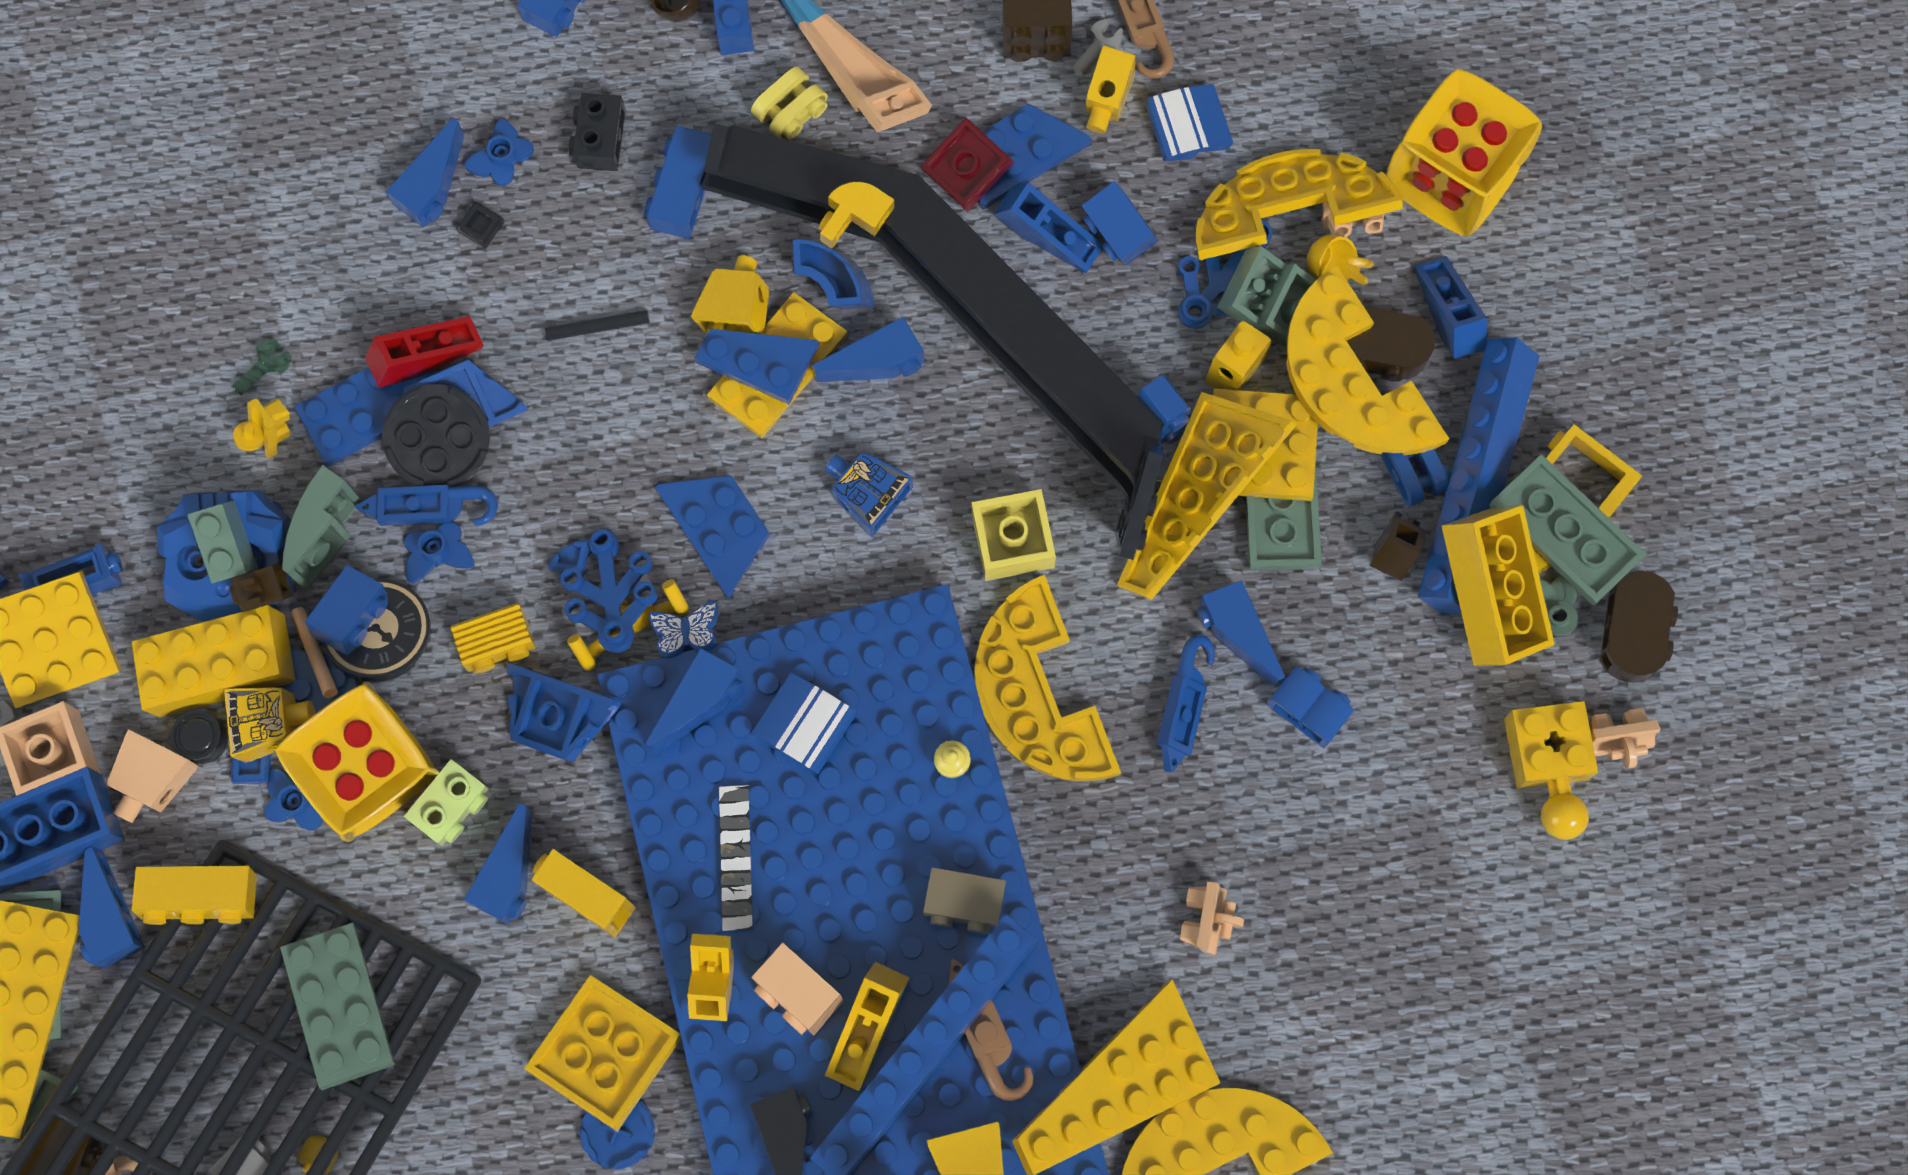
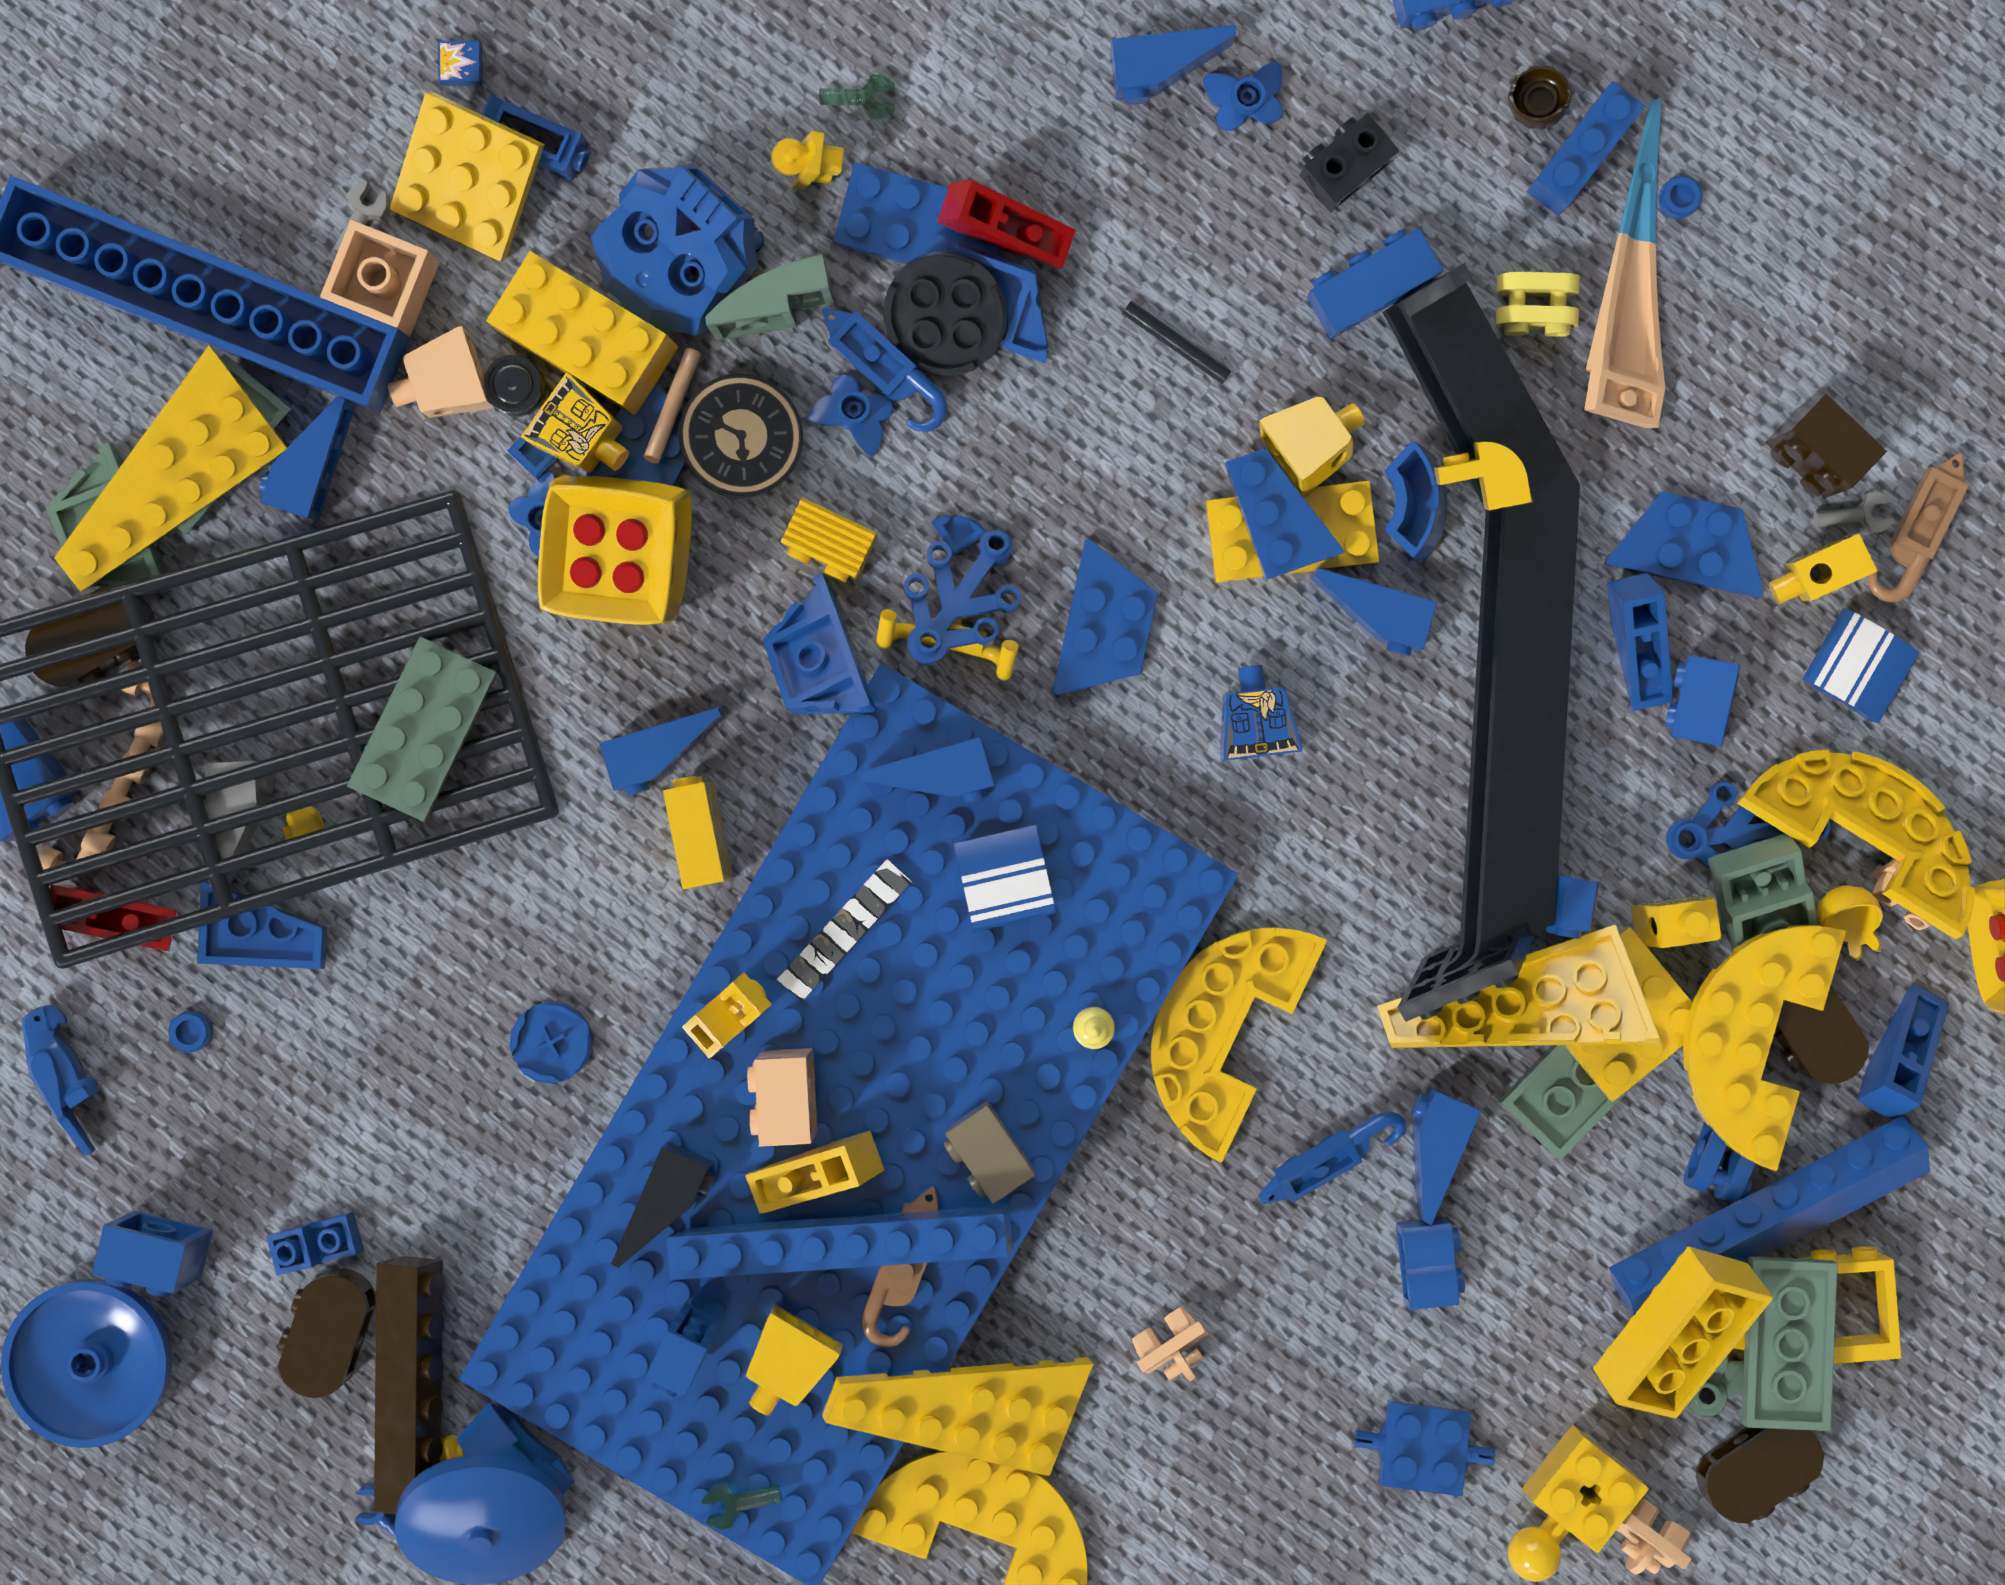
camera: 45 degrees right, 15 degrees up
(194, 894) = (389, 524): yellow brick -> none
(222, 541) = (676, 244): sand green brick -> none
(260, 587) = (674, 313): dark brown brick -> none
(347, 610) = (730, 401): blue brick -> none
(447, 803) = (659, 647): yellowish green brick -> none
(480, 225) = (1165, 147): black tile -> none
(603, 1053) = (595, 974): yellow plate -> none
(687, 633) = (987, 699): blue animal -> none
(966, 164) = (1631, 513): dark red tile -> none
(1013, 535) = (1335, 883): light yellow brick -> none
(1398, 547) = (1639, 1210): dark brown brick -> none
(1430, 823) = (1424, 1448): none -> blue plate

